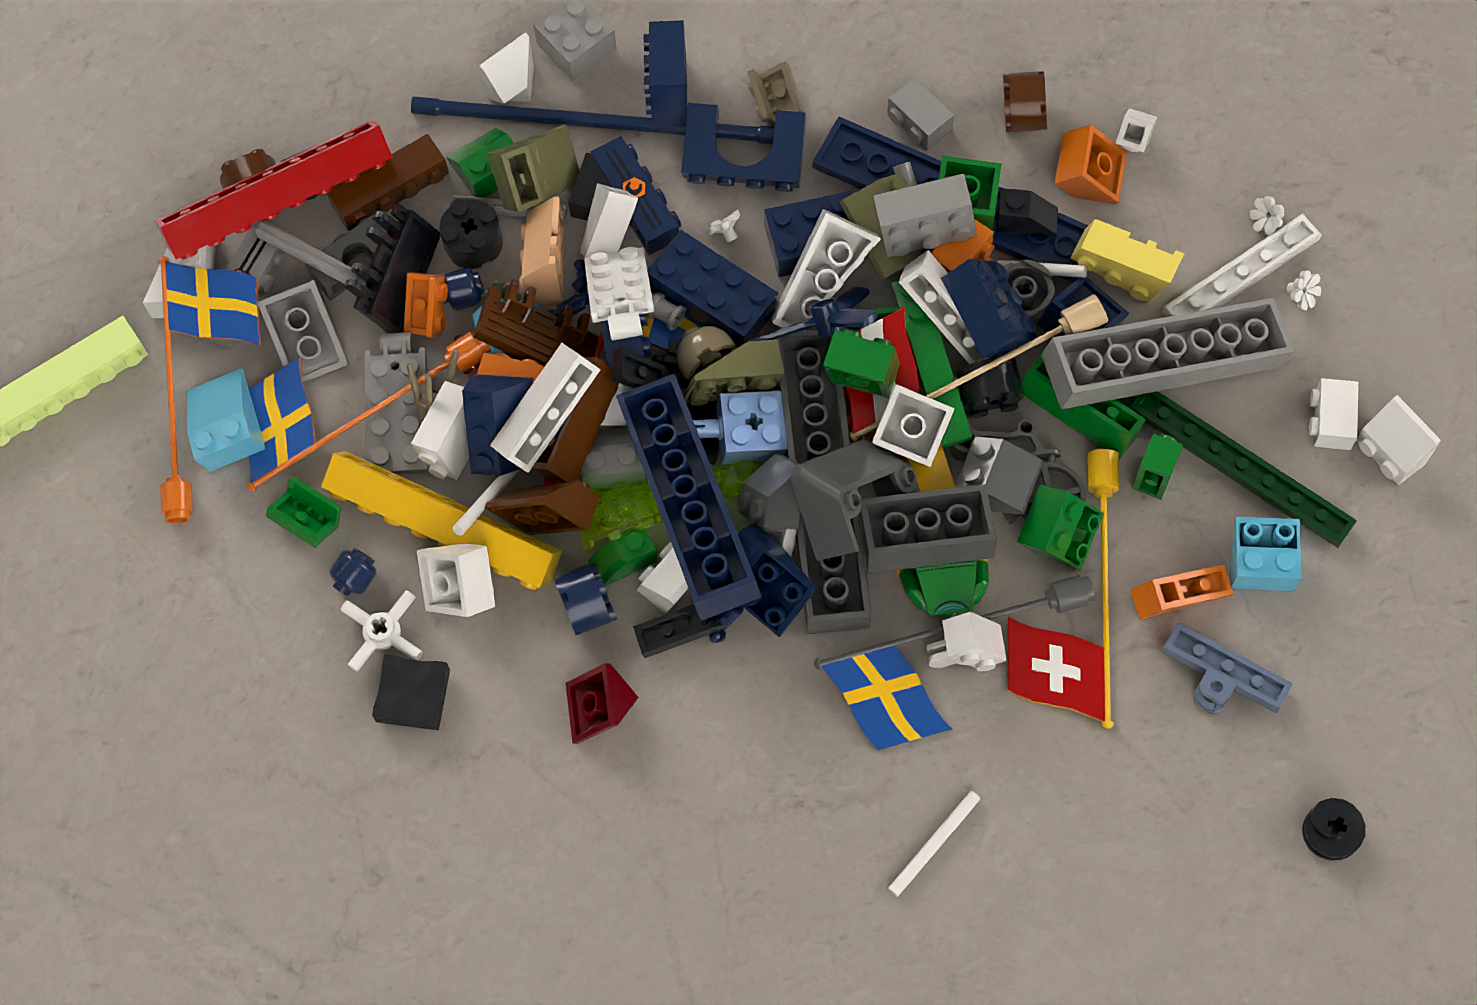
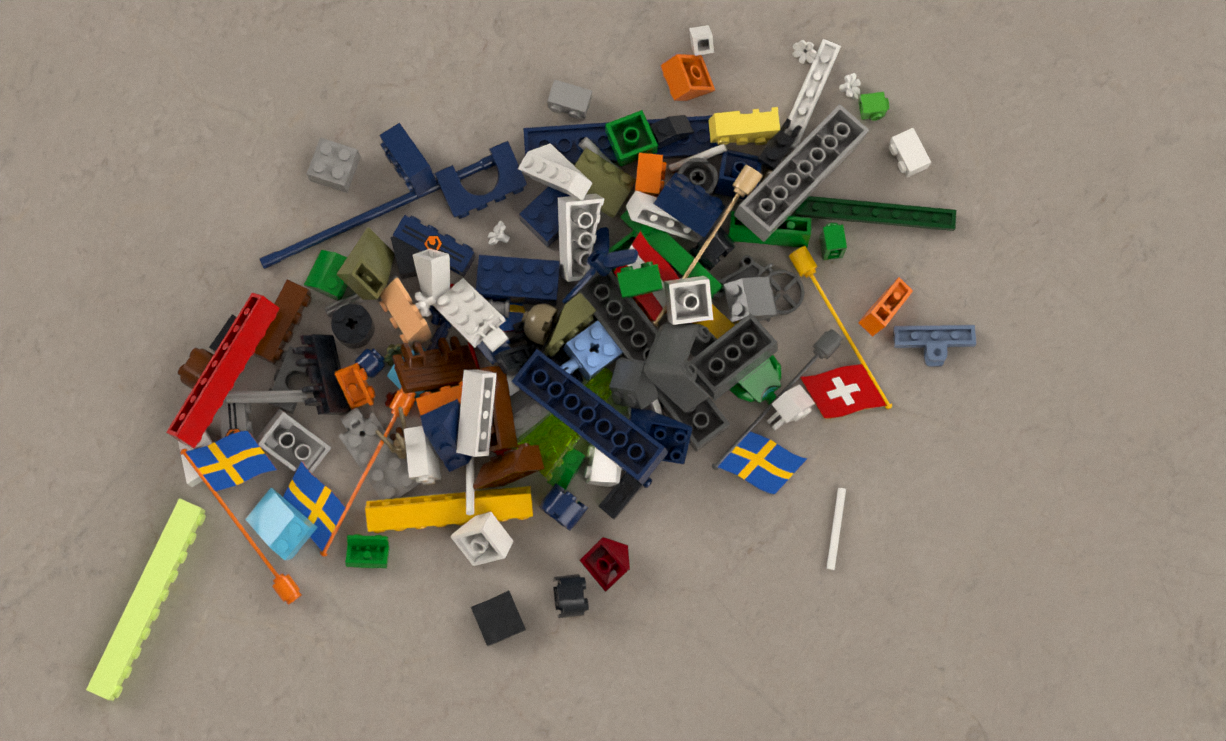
camera: 35 degrees left, 10 degrees up
(352, 572) = (418, 569): dark blue head -> none
(377, 621) = (467, 593): white bar -> none
(510, 72) = (311, 213): white slope -> none
(519, 716) = (570, 596): none -> black brick
(572, 249) = (424, 303): none -> white plant
(774, 91) = (477, 134): dark tan bracket -> none
(839, 177) = (554, 170): none -> white wedge
(925, 215) = (623, 170): light grey brick -> none
(1025, 101) = (628, 58): reddish brown brick -> none
(1060, 526) = (800, 309): green slope -> none
(1161, 305) = (778, 146): none -> black hinge
(1265, 554) = (919, 258): medium azure slope -> none
(1320, 329) = (873, 106): none -> bright green brick
(1350, 829) = (1037, 403): black piece -> none
(1398, 441) = (953, 151): white slope -> none

